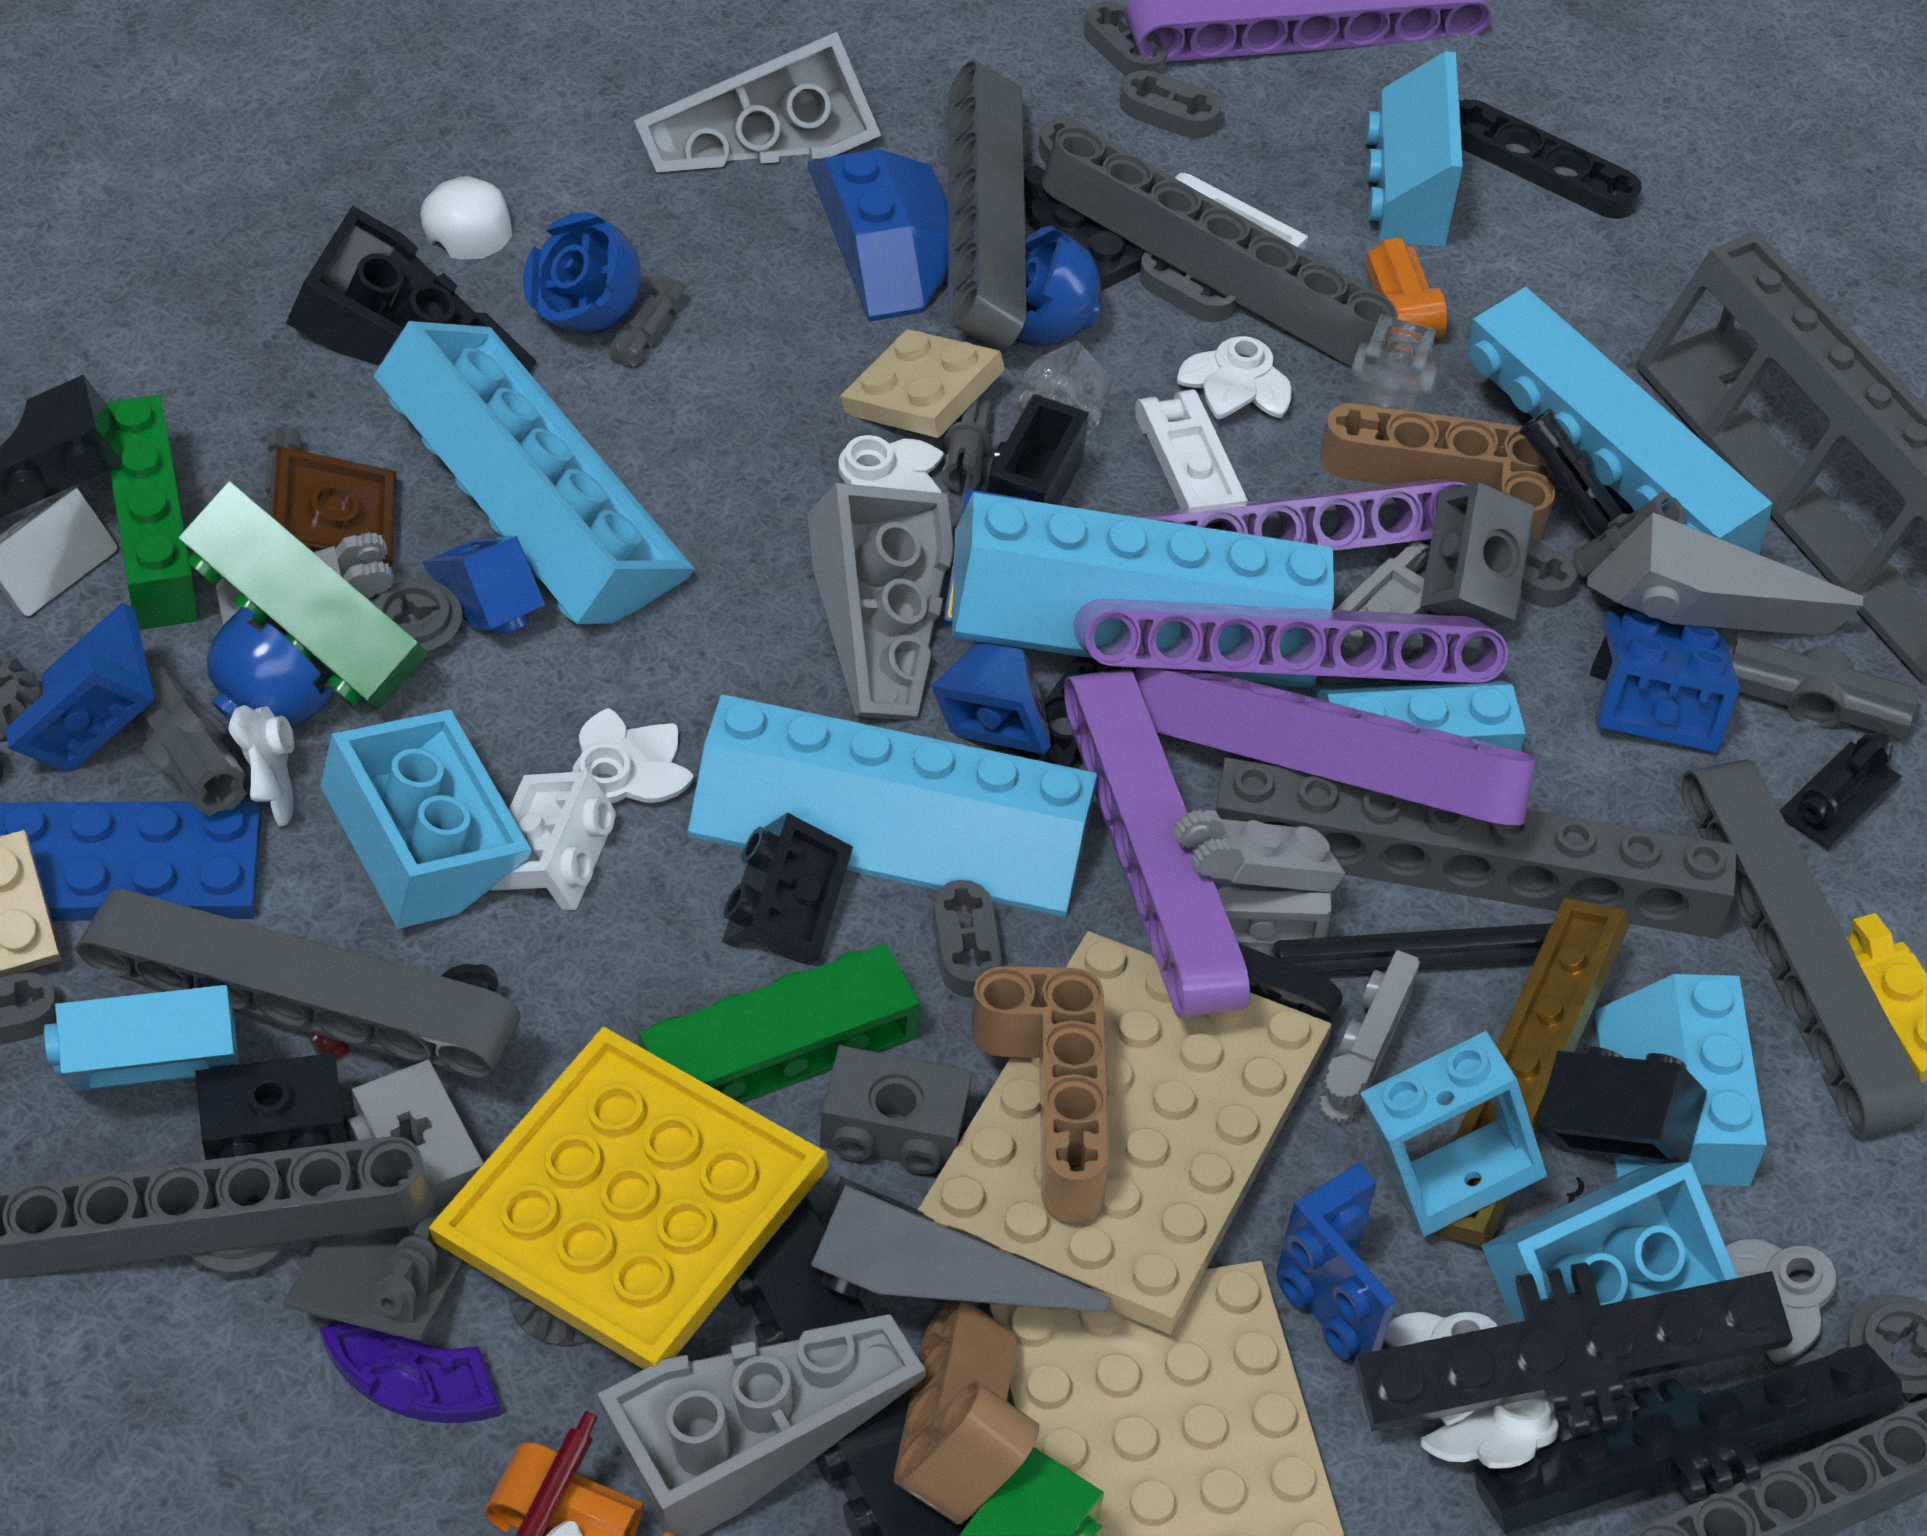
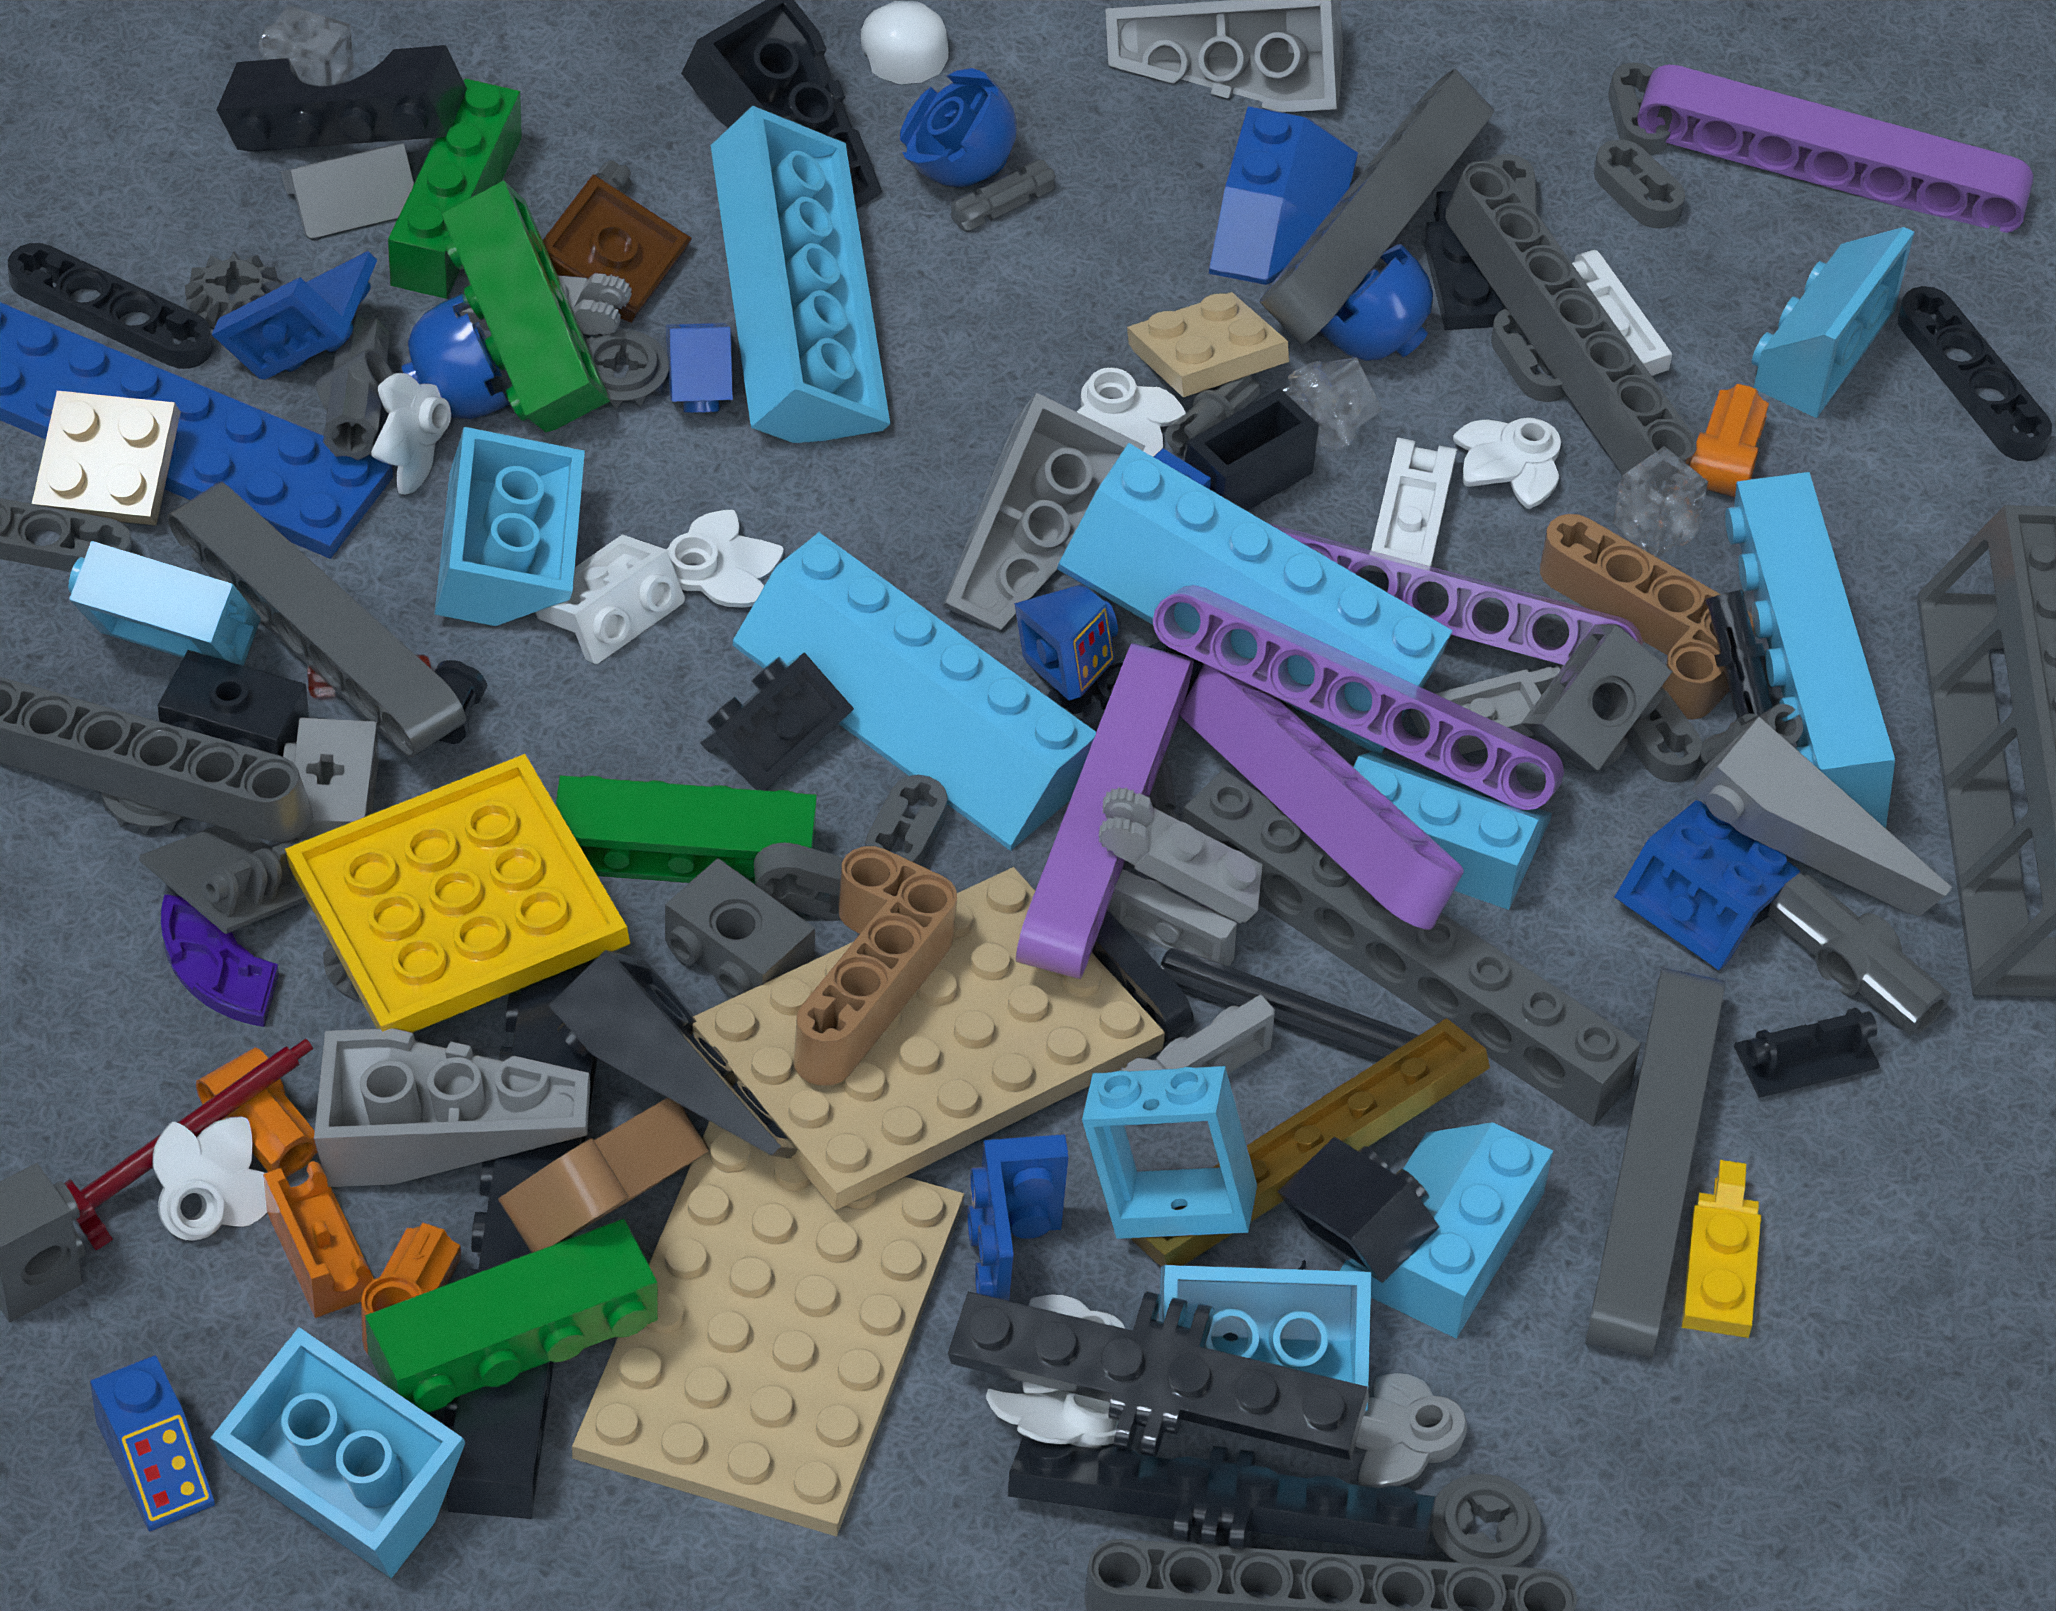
camera: 30 degrees right, 0 degrees up
(927, 1027) = (800, 878): none -> dark grey beam

